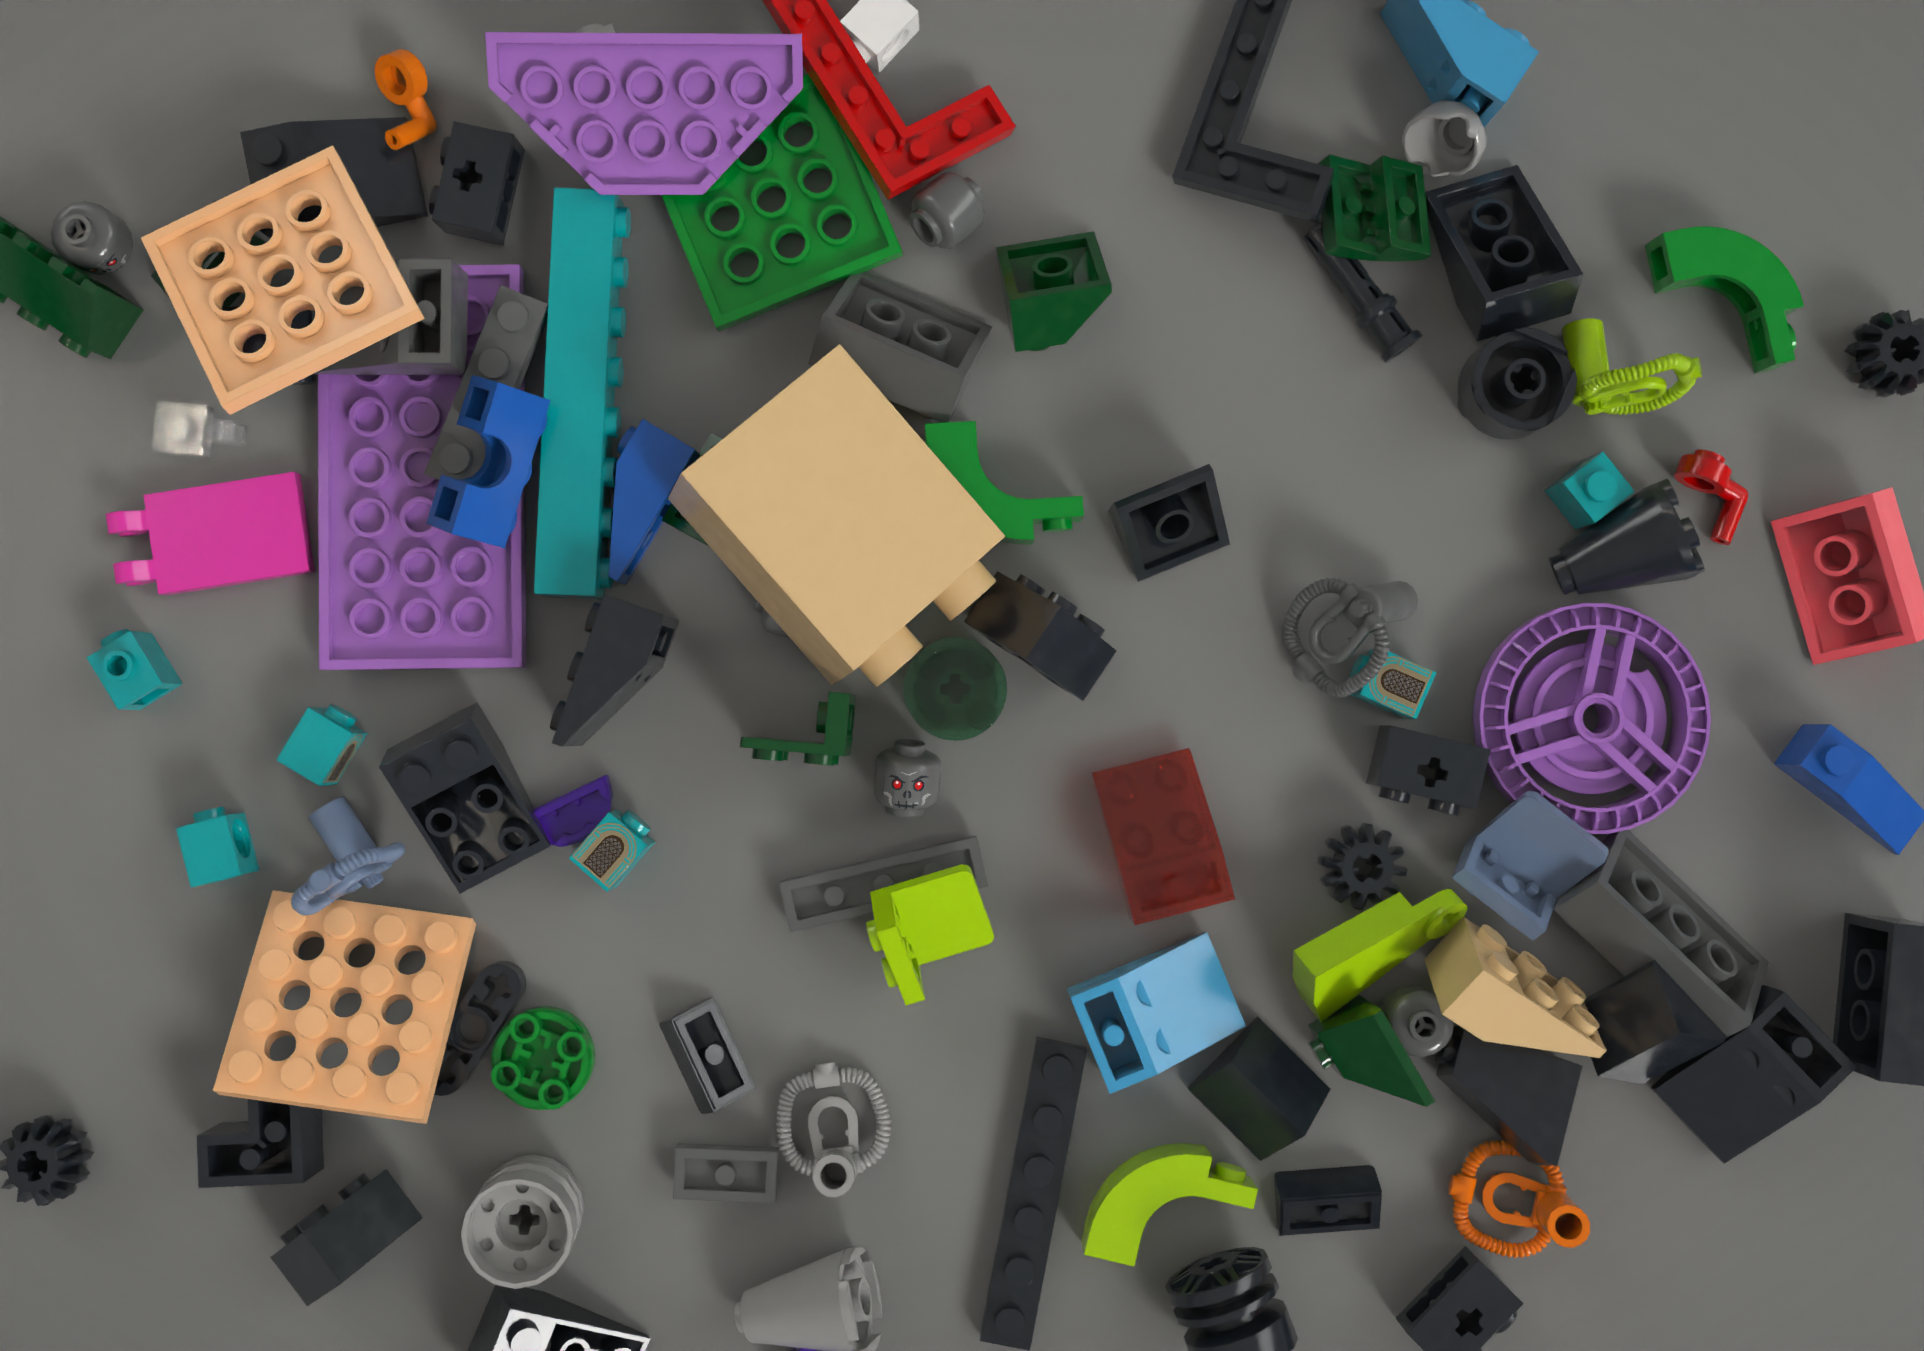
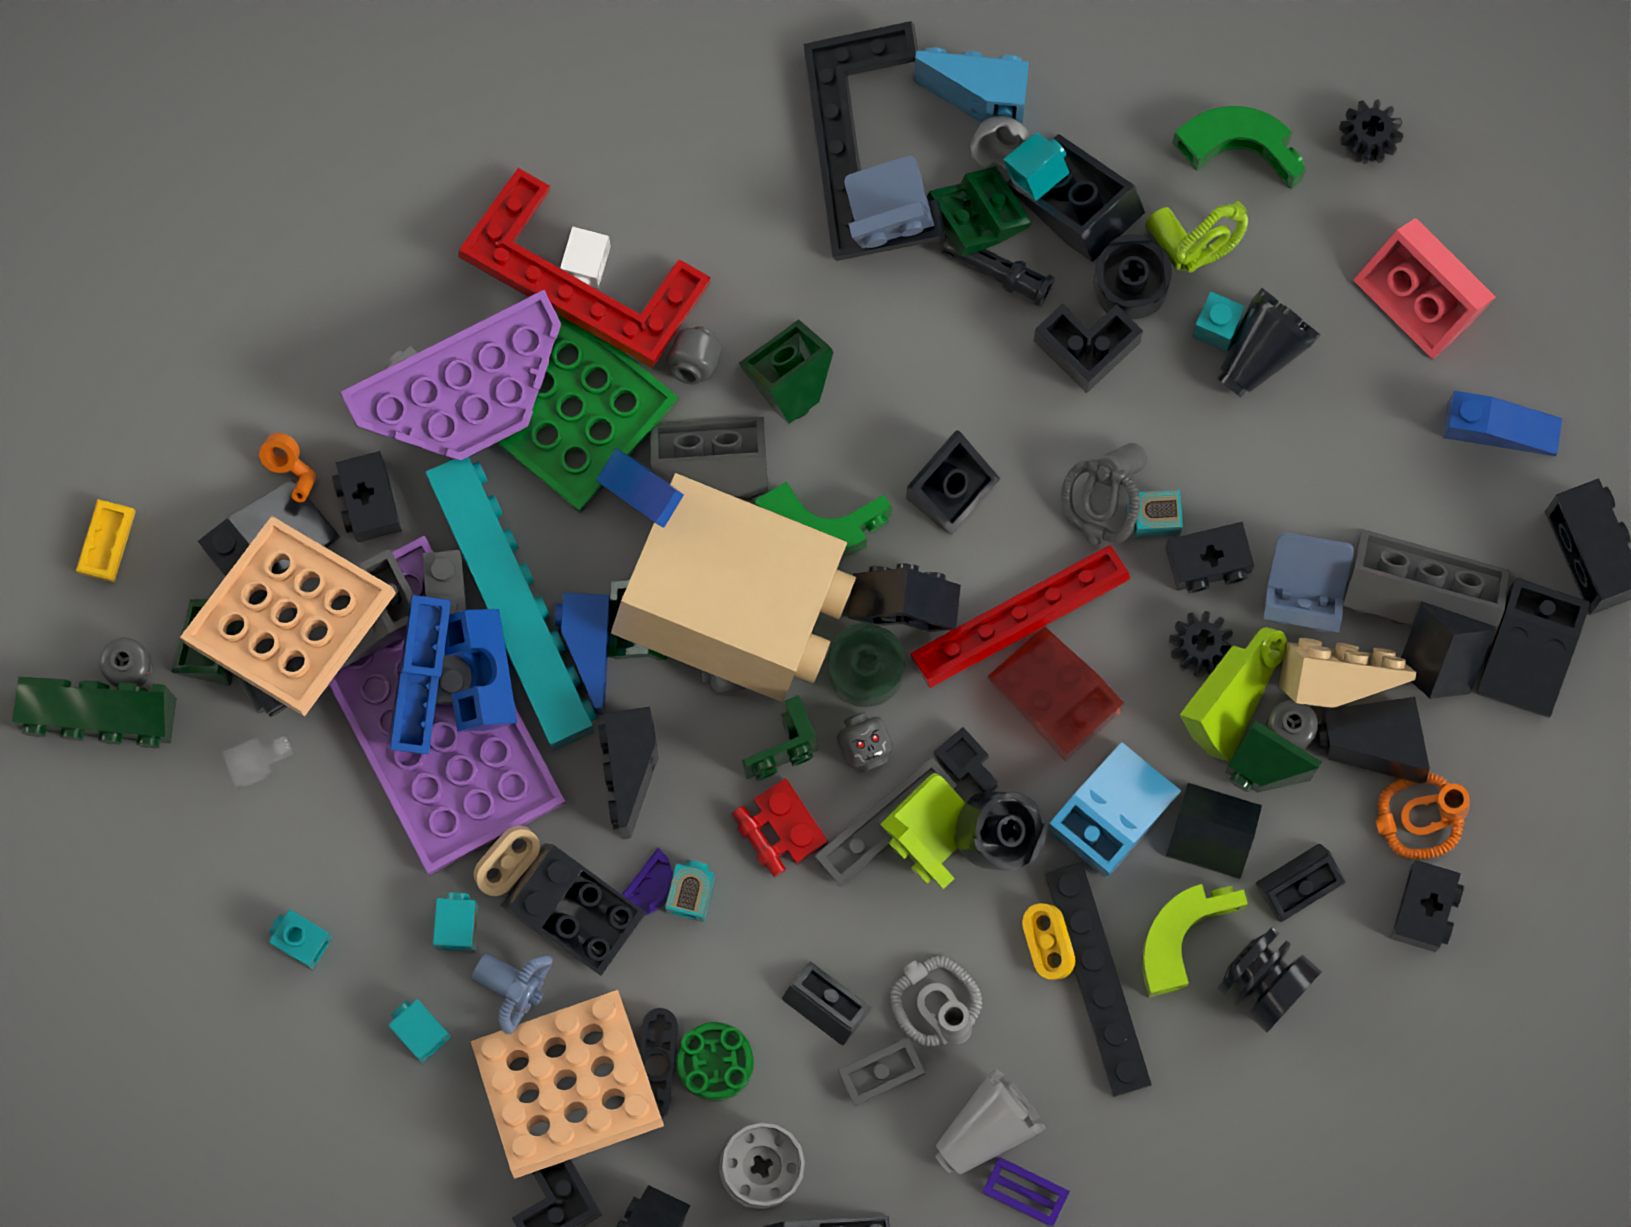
camera: 20 degrees left, 10 degrees down
(148, 78) = (105, 540): none -> yellow plate
(218, 535) = (309, 821): dark pink tile -> none
(412, 431) = (419, 675): none -> blue slope
(422, 700) = (508, 861): none -> tan plate
(773, 825) = (789, 820): none -> red plate
(788, 341) = (640, 487): none -> blue slope
(997, 1120) = (1046, 943): none -> yellow plate
(1008, 971) = (1000, 830): none -> black brick
(1014, 855) = (964, 757): none -> black plate
(1168, 722) = (1020, 616): none -> red plate
(1273, 141) = (887, 202): none -> sand blue bracket
(1411, 447) = (1084, 352): none -> black brick
(1475, 188) = (1037, 165): none -> teal brick
(1628, 706) = (1290, 440): medium lavender piece -> none
(1708, 474) = (1291, 271): red plate -> none

